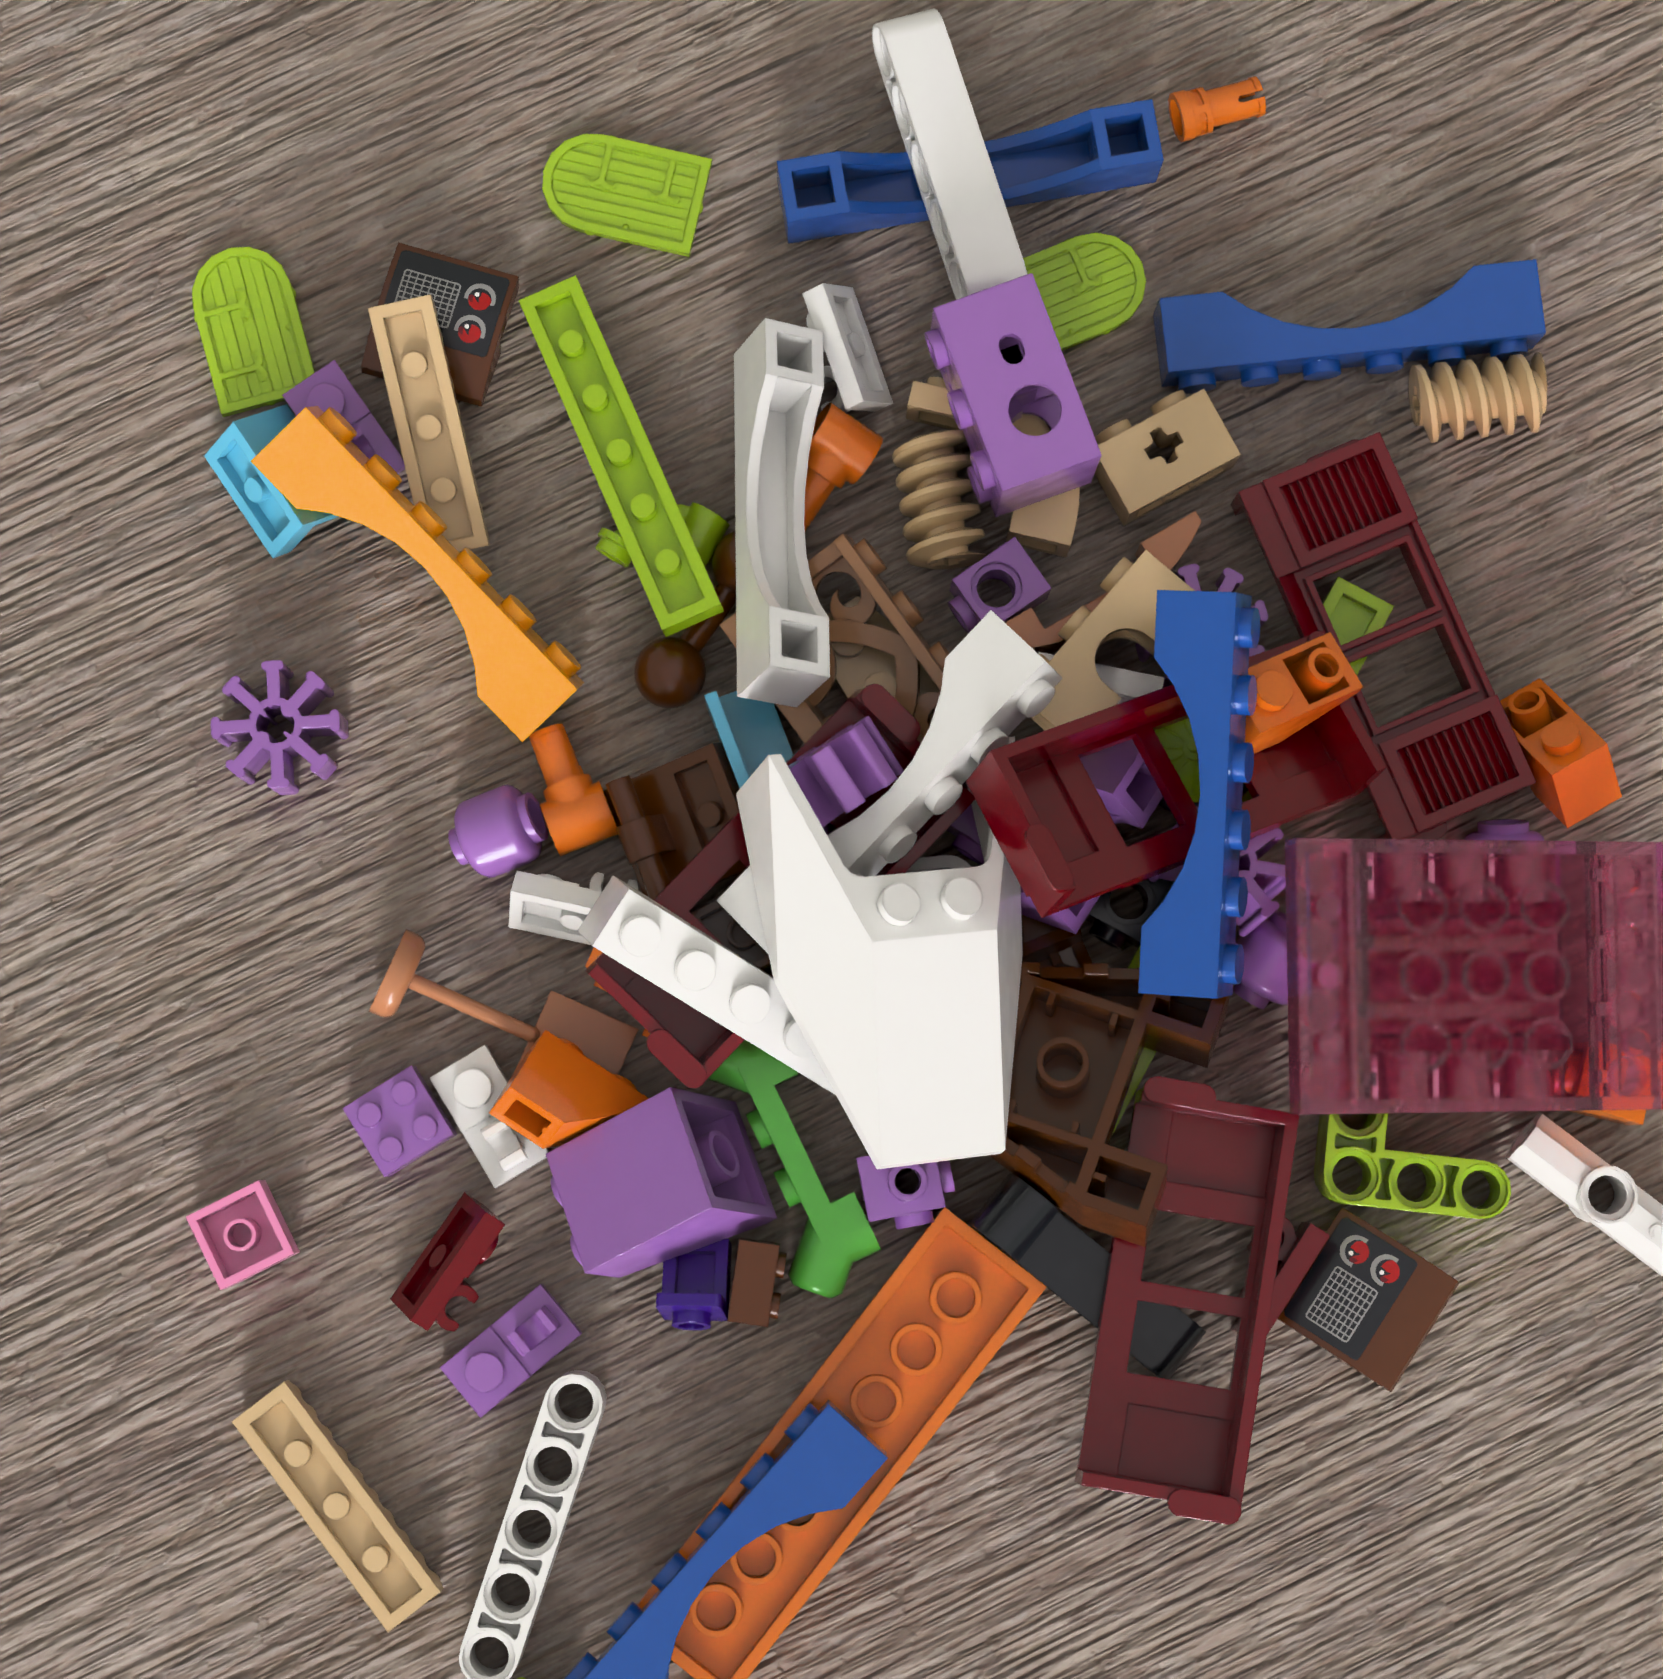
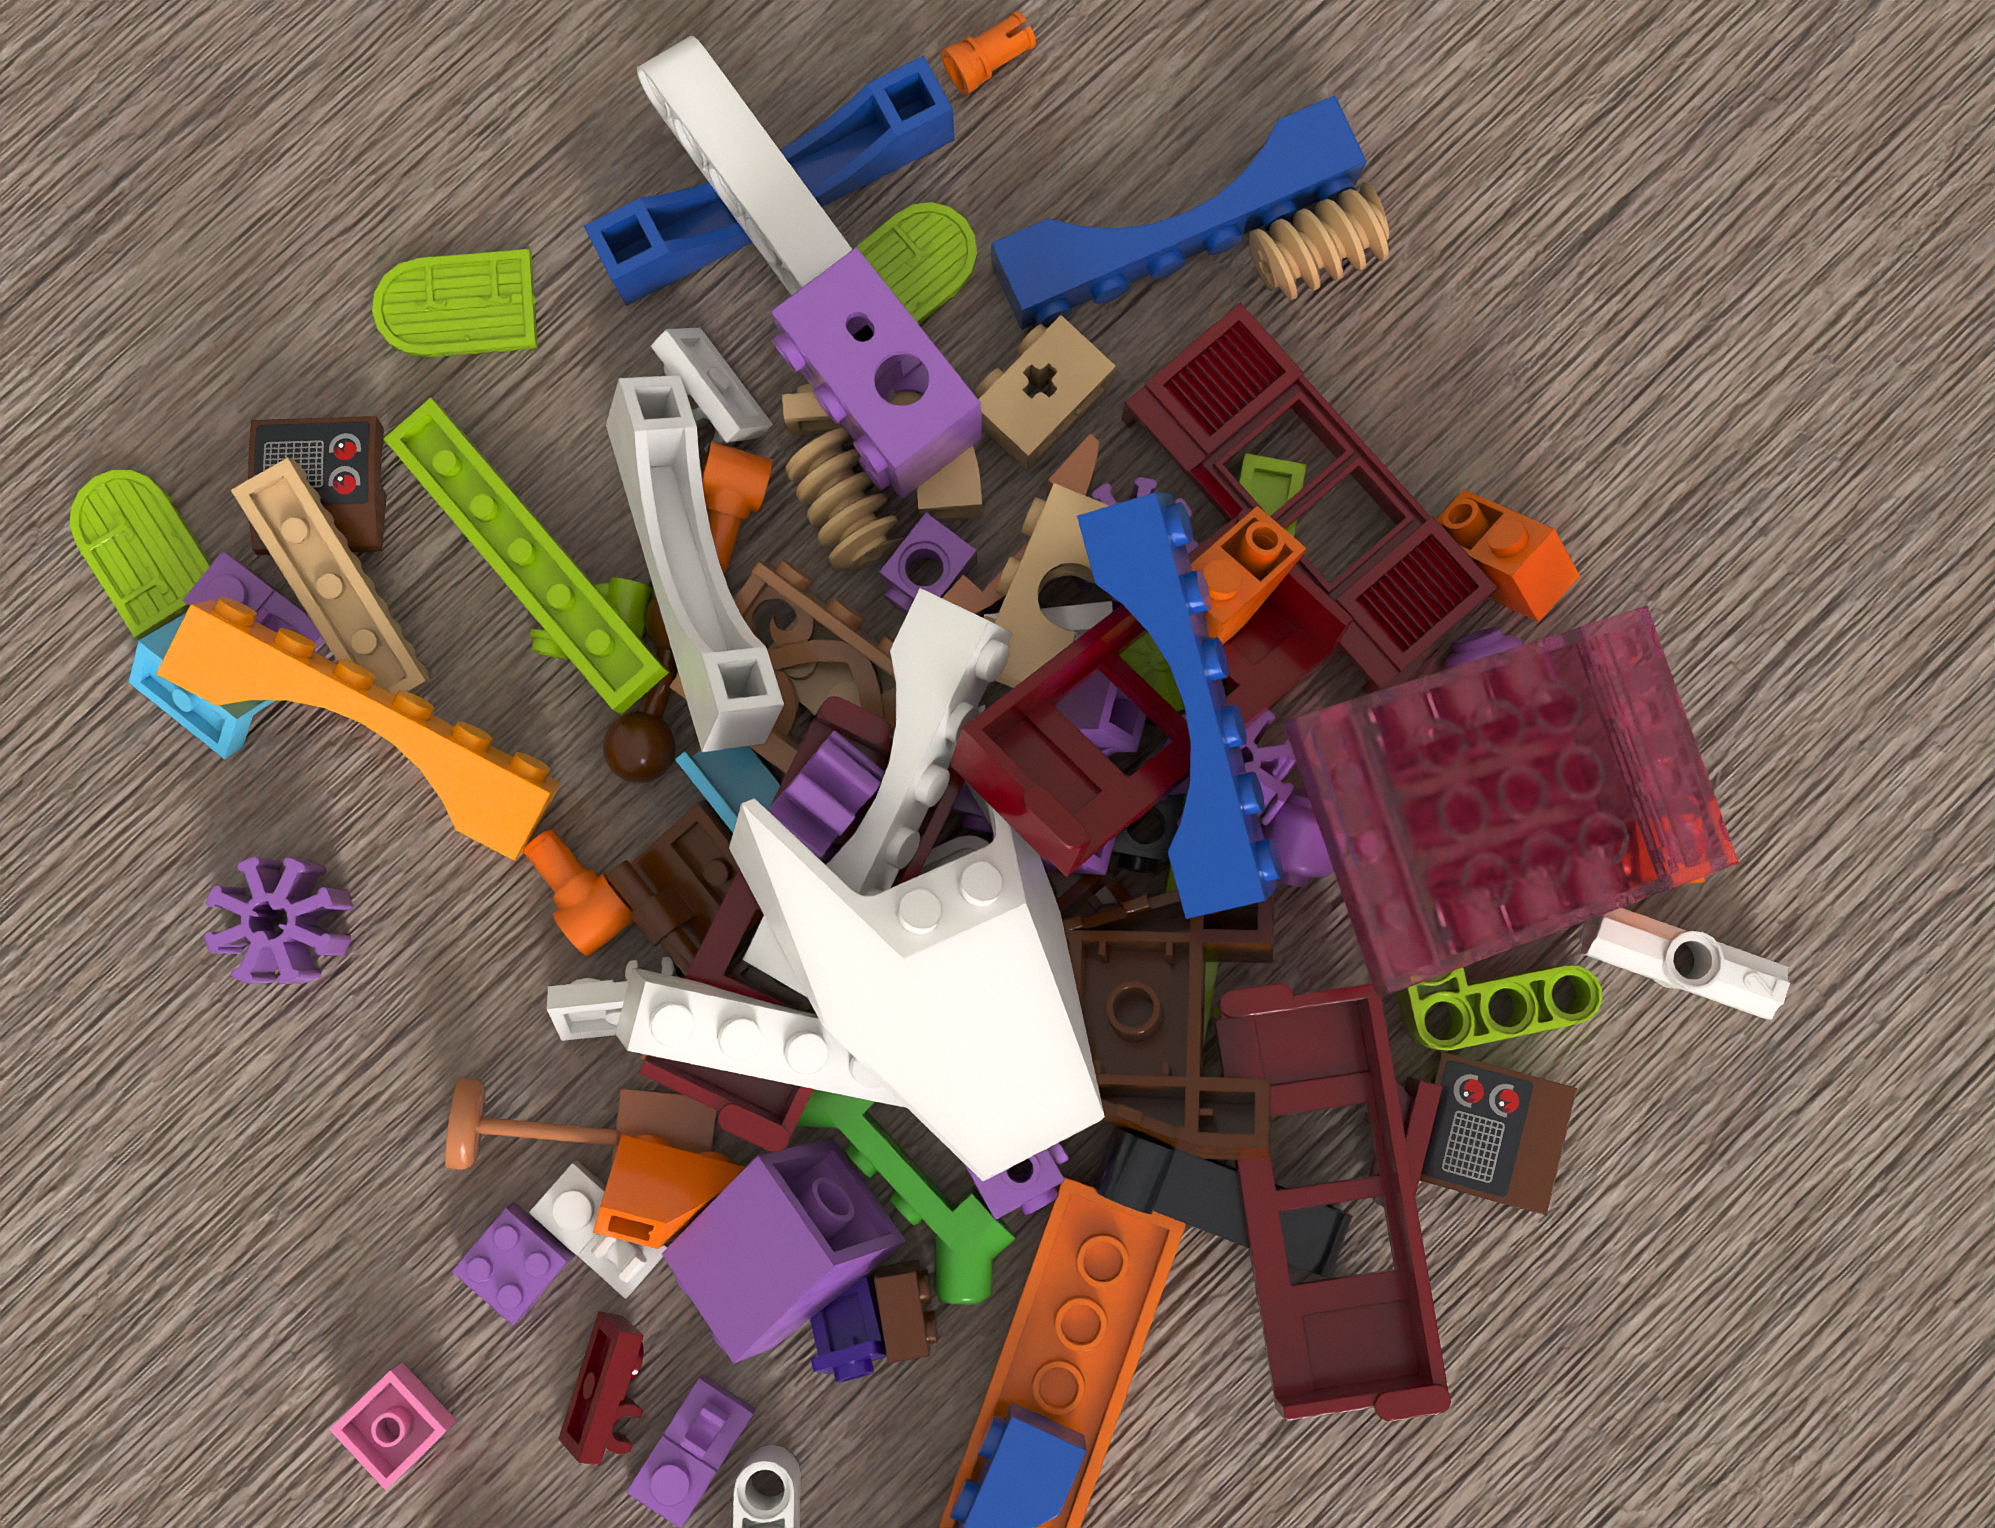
camera: 15 degrees left, 0 degrees up
(498, 831) = (520, 953): medium lavender head -> none

